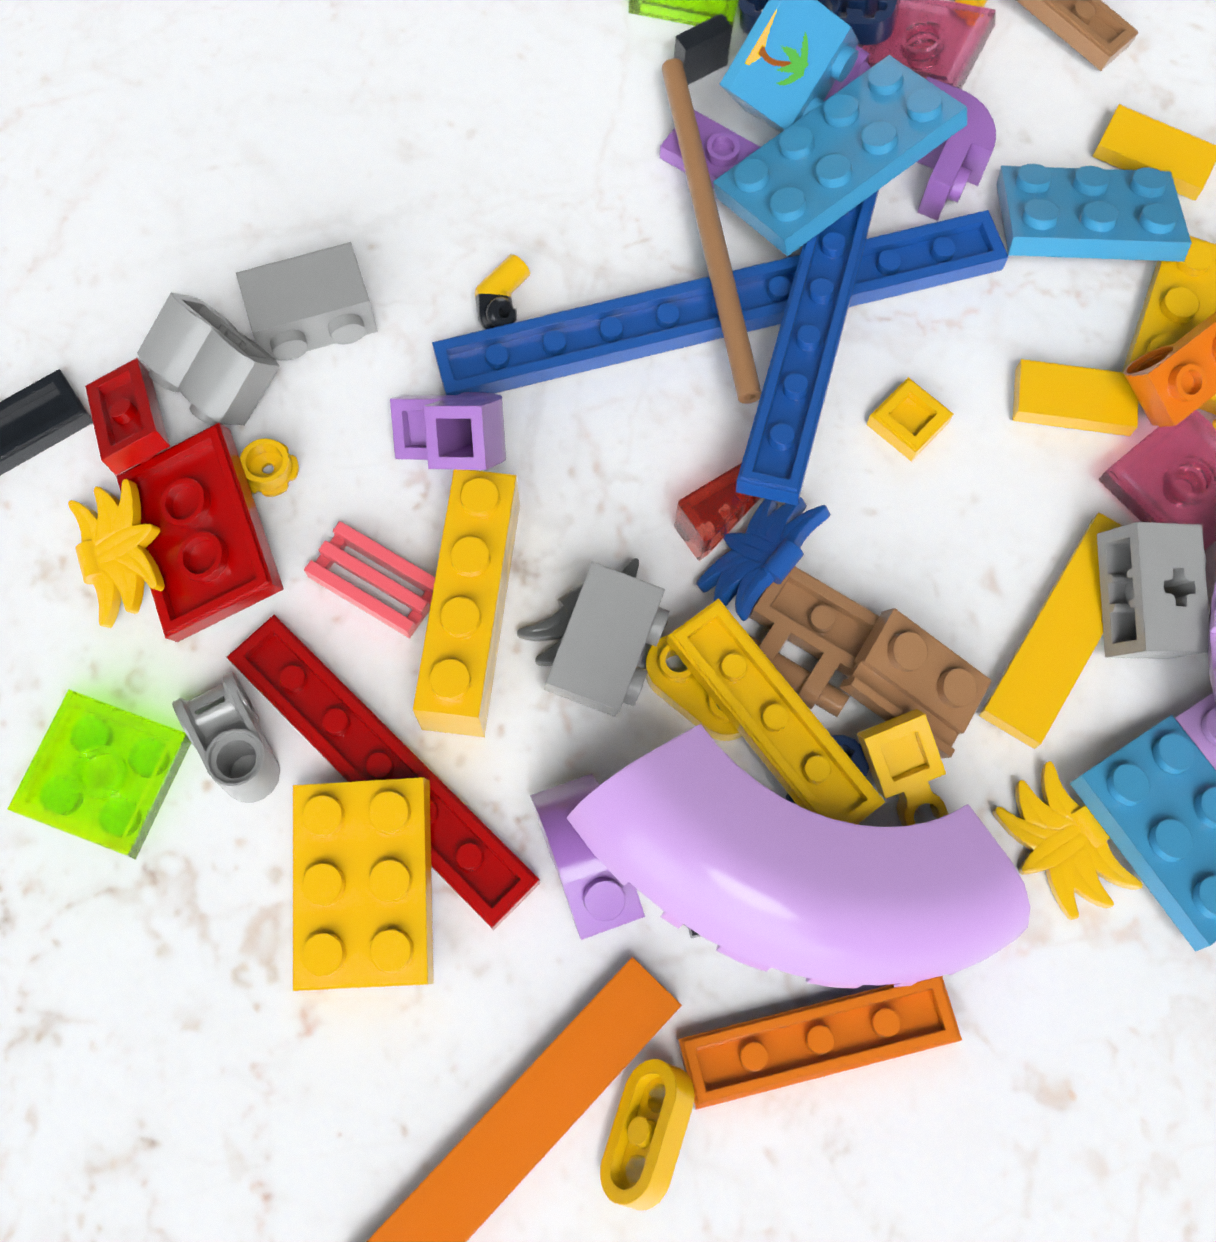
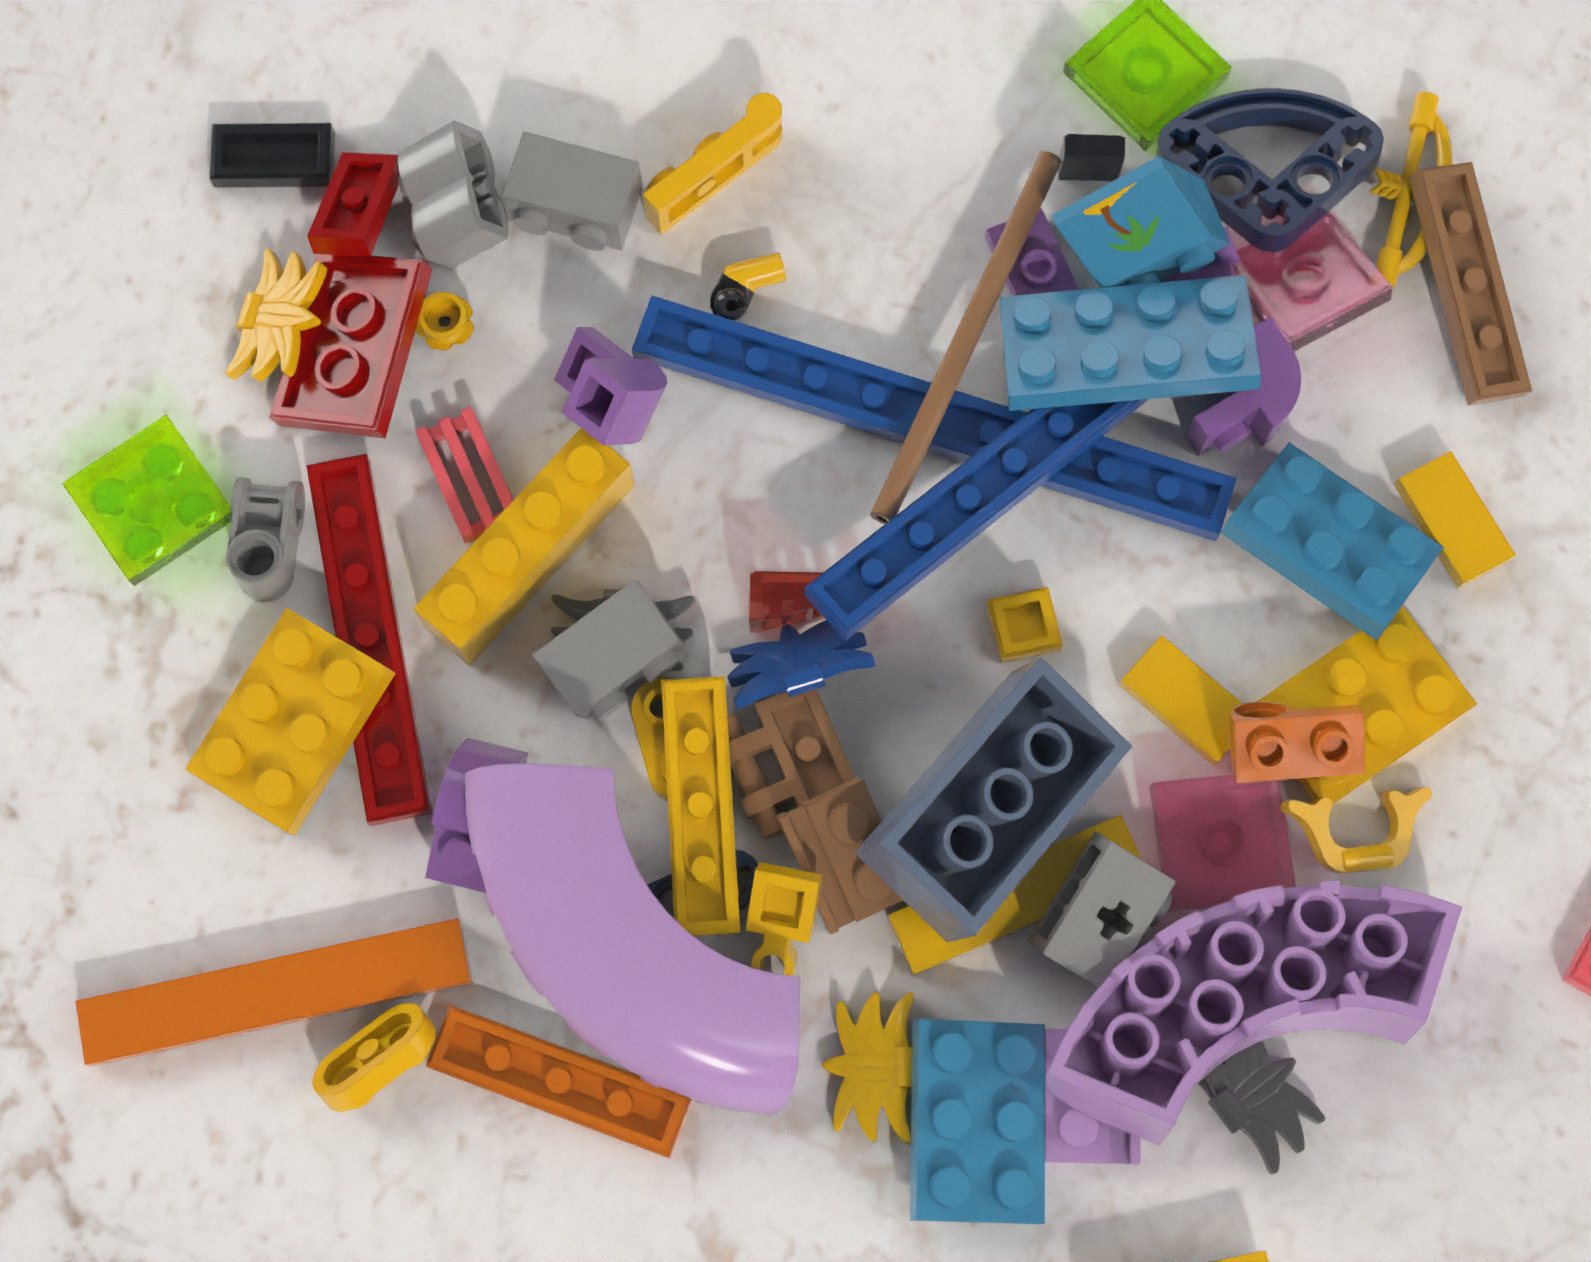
camera: 35 degrees right, 5 degrees up
(410, 217) = (714, 163): none -> yellow plate
(1013, 558) = (994, 801): none -> sand blue brick

